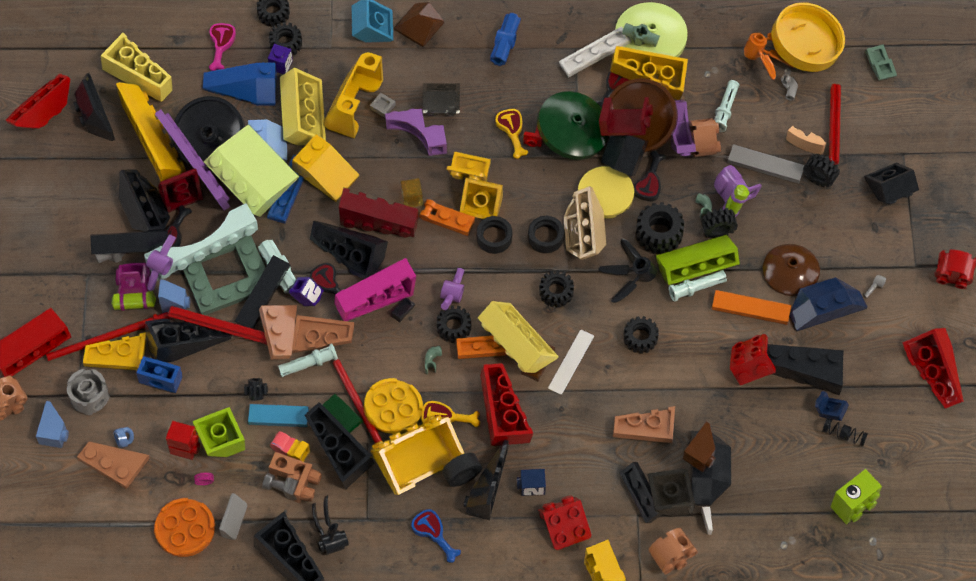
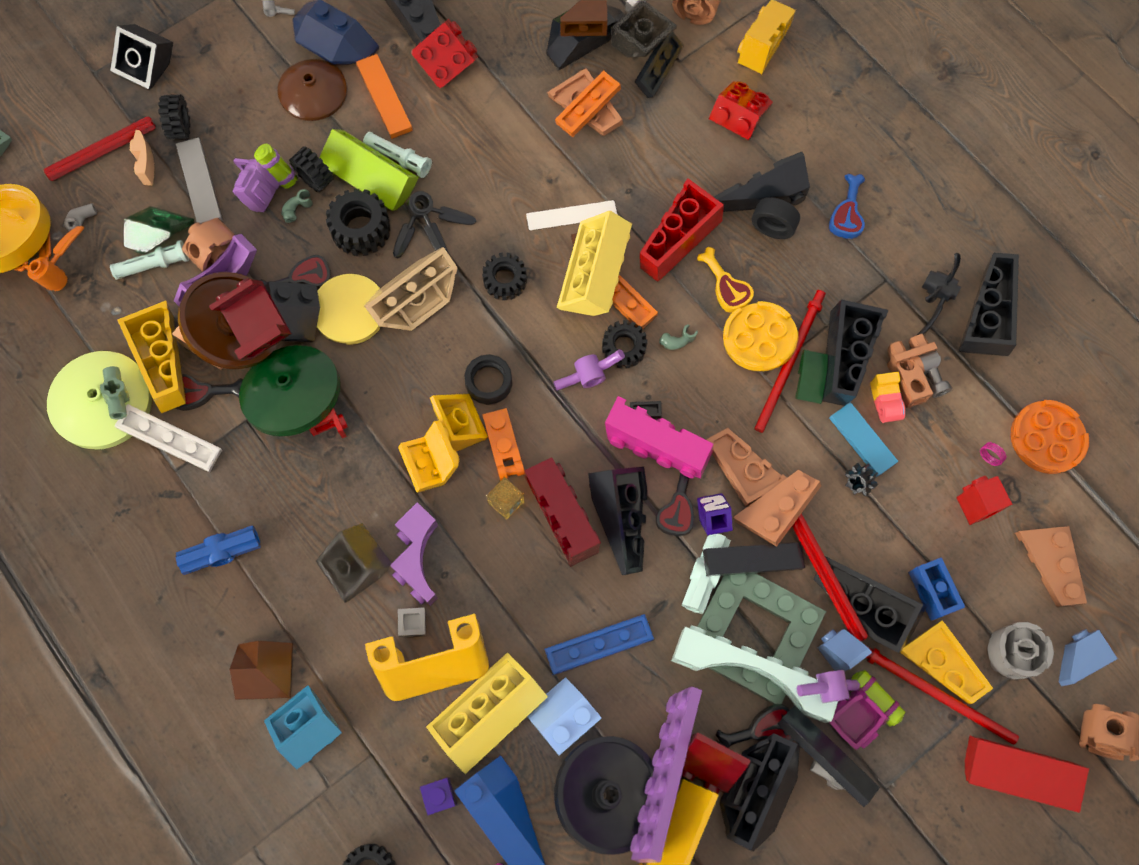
camera: 130 degrees left, 10 degrees up
(120, 437) = (1026, 573): medium blue tile -> none
(220, 434) = (944, 470): lime slope -> none
(233, 517) = (1001, 396): light grey slope -> none
(251, 170) = (624, 693): yellowish green slope -> none
(286, 30) = (385, 819): black tyre -> none
(317, 358) = (771, 451): light aqua pin -> none
(324, 168) = (547, 619): yellow slope -> none
(417, 452) = (791, 276): yellow windscreen -> none
(511, 123) = (330, 464): yellow piece -> none
(532, 482) = (729, 157): dark blue brick -> none
(543, 221) = (441, 312): black tyre -> none
(640, 416) = (588, 103): none -> orange plate
(641, 324) = (492, 155): black tyre -> none
(746, 119) = (152, 228): none -> clear green slope

